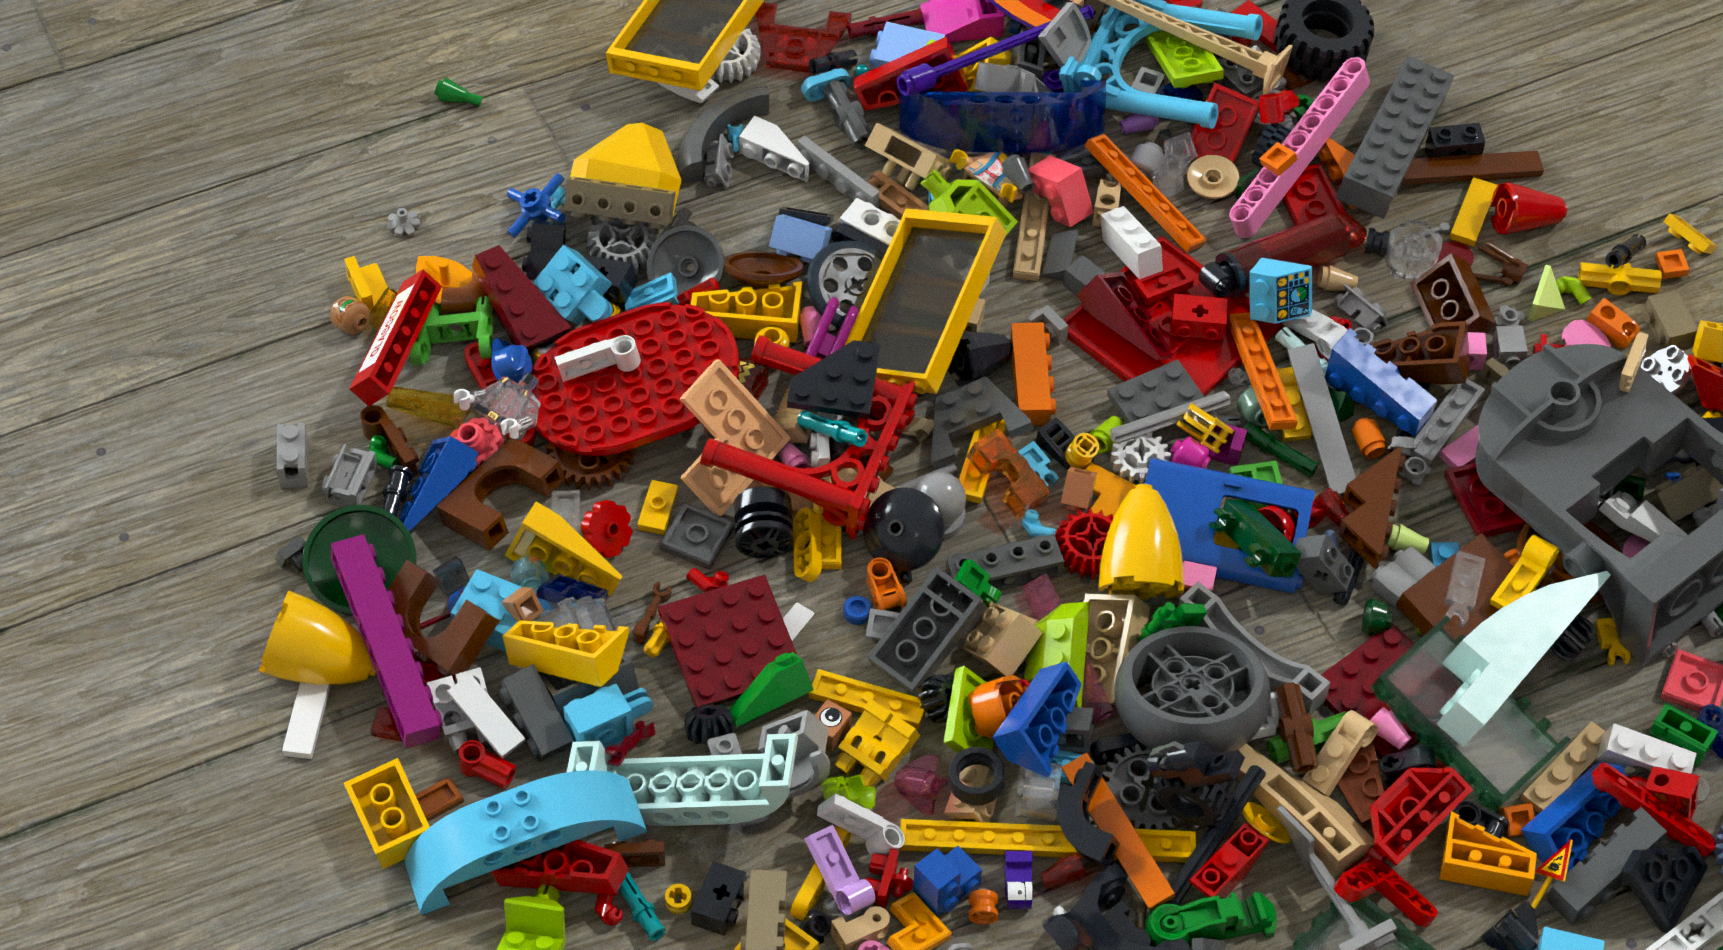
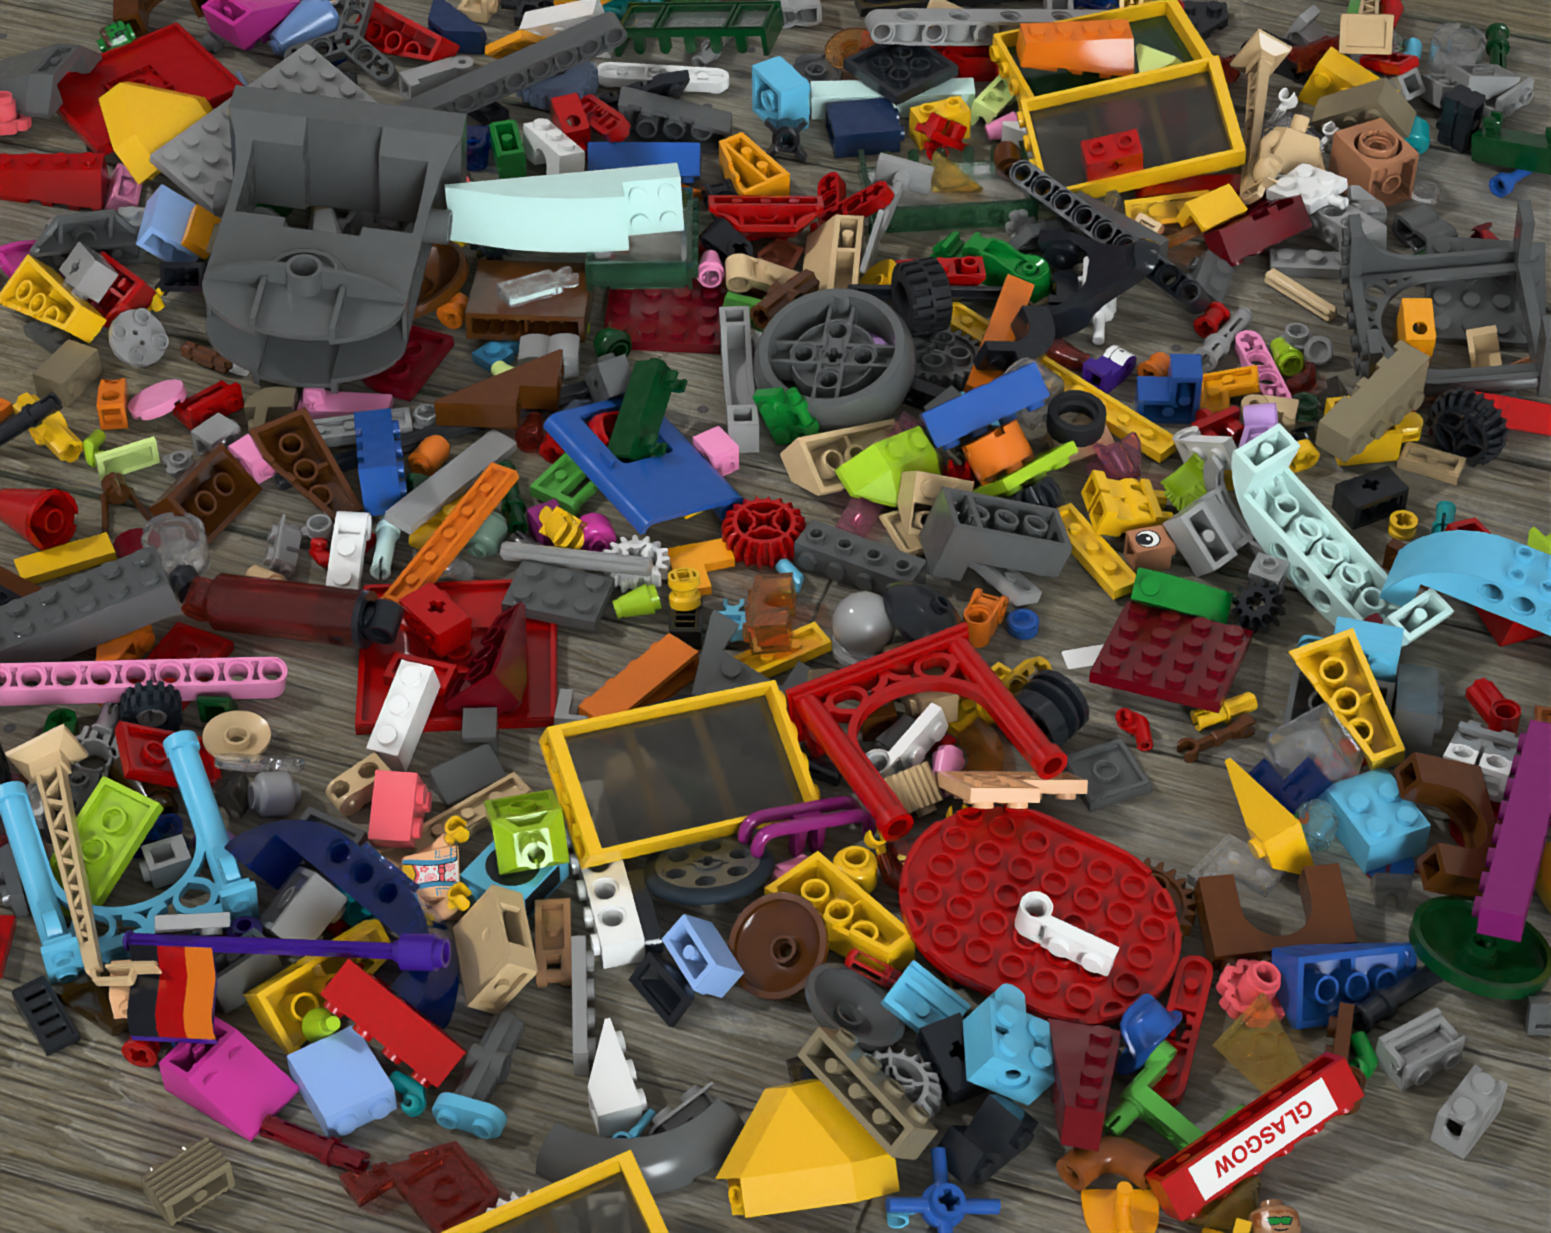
camera: 135 degrees left, 10 degrees down
(486, 716) = (1470, 720): white tile -> none
(505, 404) = (1199, 972): clear torso -> none
(523, 604) = (1355, 781): medium nougat slope -> none
(607, 528) = (1200, 818): red plant -> none
(657, 507) = (1120, 819): yellow plate -> none
(832, 61) = (436, 1130): black pin -> none
(839, 382) = (859, 727): black plate -> none
(839, 430) = (903, 701): teal pin -> none
(976, 580) = (914, 542): green plate -> none
(1003, 78) = (312, 917): light grey tile -> none
(1017, 172) = (424, 838): dark grey cone -> none
(1078, 488) = (723, 568): nougat brick -> none
(1142, 549) = (758, 455): yellow cylinder -> none
(1145, 193) = (322, 756): orange tile -> none
(1194, 763) = (929, 250): black plate -> none
(1277, 105) = (105, 714): red piece -> none
(1278, 158) = (180, 668): orange tile -> none
(1280, 291) = (357, 561): medium azure slope -> none
(1405, 443) = (422, 416): light grey plate -> none
(1527, 573) = (485, 264): yellow plate -> none
(1553, 868) = (711, 134): piece -> none
(1633, 362) = (215, 250): tan tile -> none

